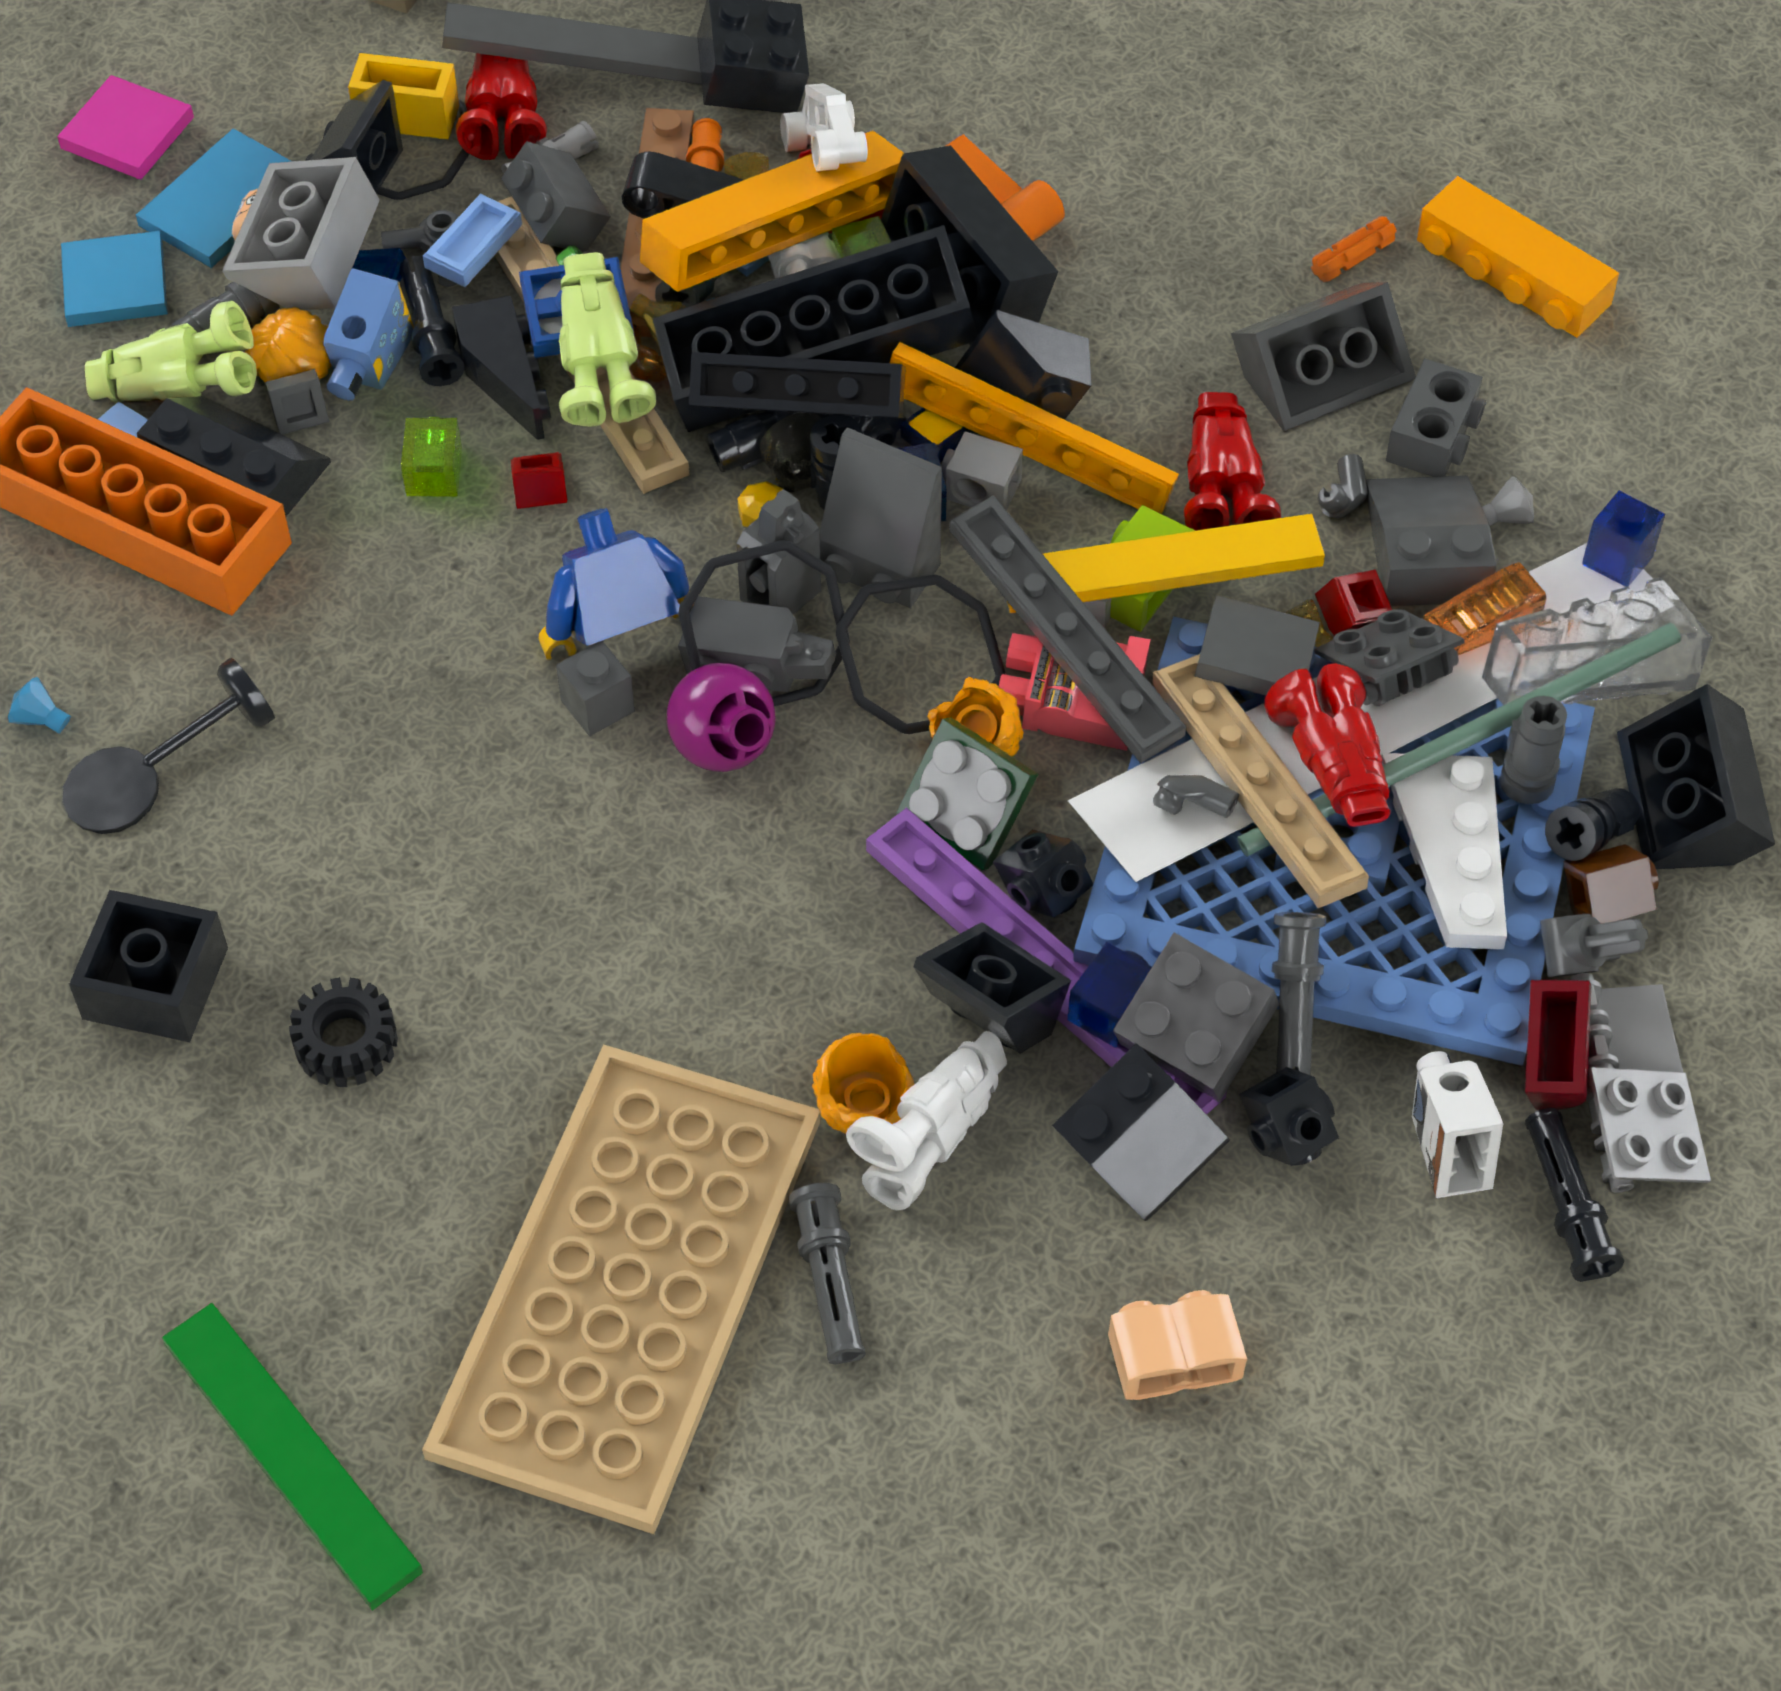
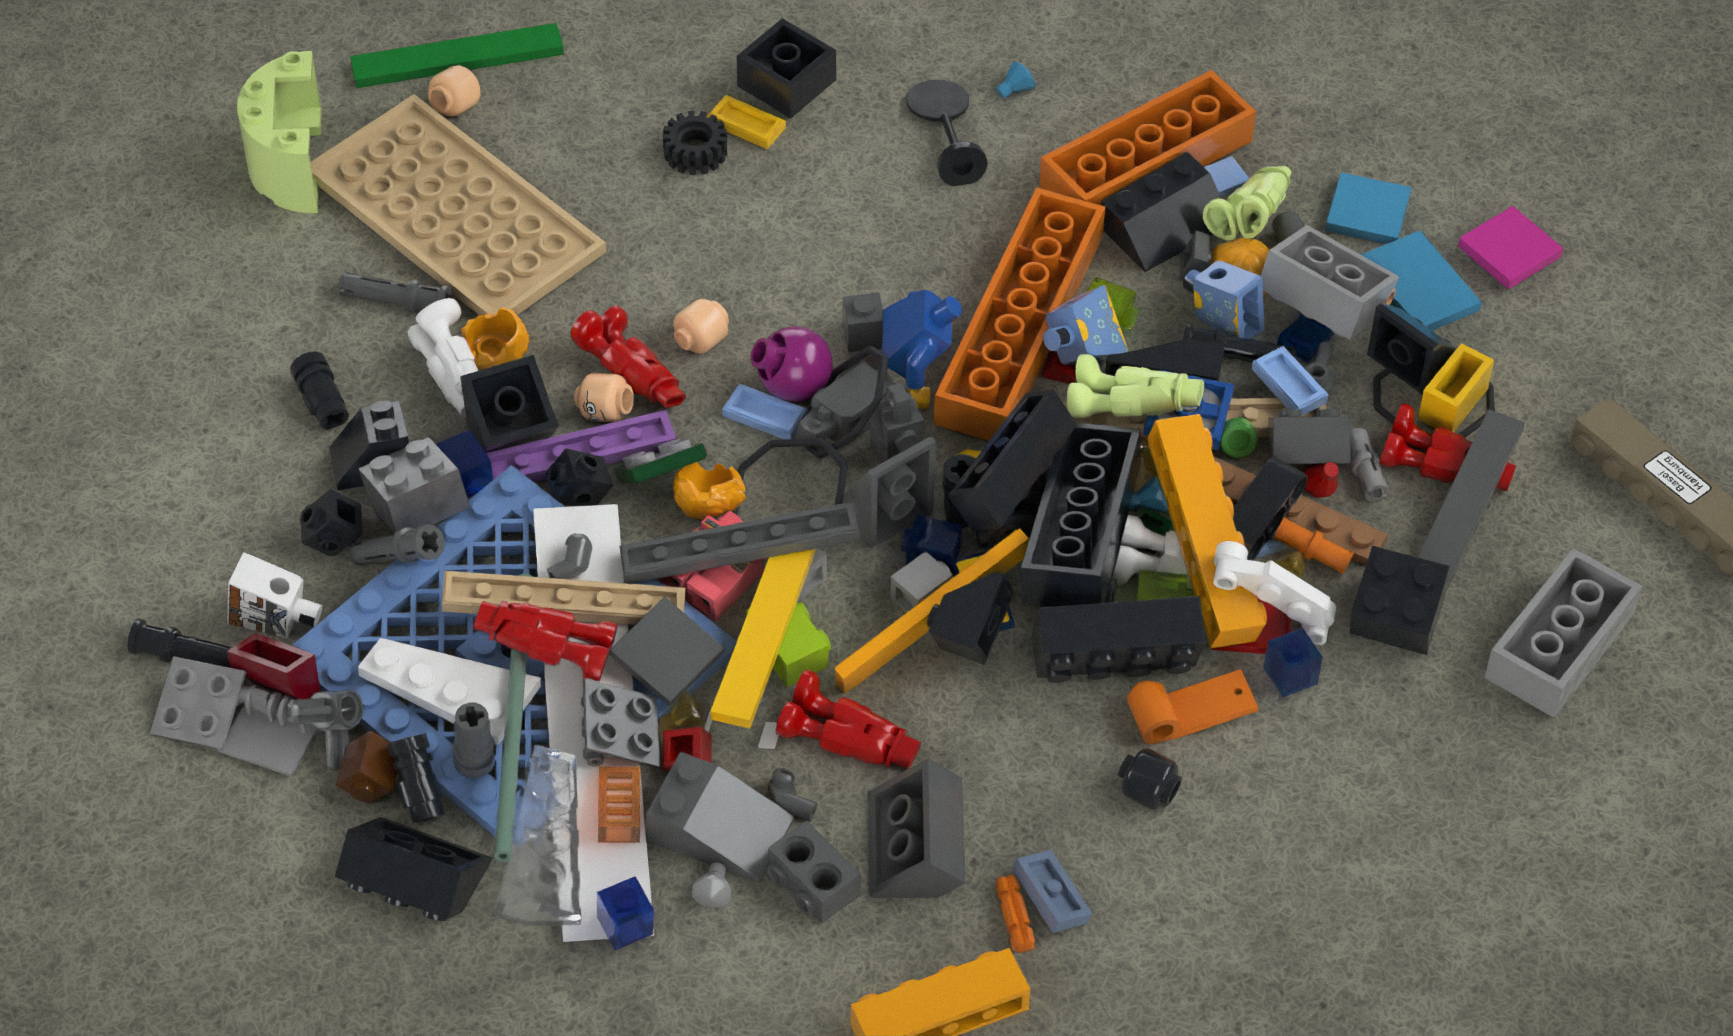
camera: 115 degrees right, 5 degrees down
(260, 999) = (748, 121): none -> yellow tile
(387, 1398) = (454, 91): none -> light nougat head
(481, 522) = (1005, 337): none -> orange brick
(526, 430) = (1085, 327): none -> medium blue torso
(598, 177) = (1322, 479): none -> red rock
(634, 1588) = (276, 118): none -> yellowish green cylinder
(696, 867) = (701, 326): none -> light nougat head
(794, 753) = (764, 412): none -> light blue tile
(799, 923) = (628, 358): none -> red piece
(883, 919) = (604, 397): none -> light nougat head
(890, 113) = (1292, 662): none -> clear blue brick
(1070, 1262) = (319, 391): none -> black axle
(1116, 186) = (1150, 778): none -> black head
(1176, 1345) = (237, 418): light nougat brick -> none
(1311, 221) = (1051, 891): none -> sand blue plate

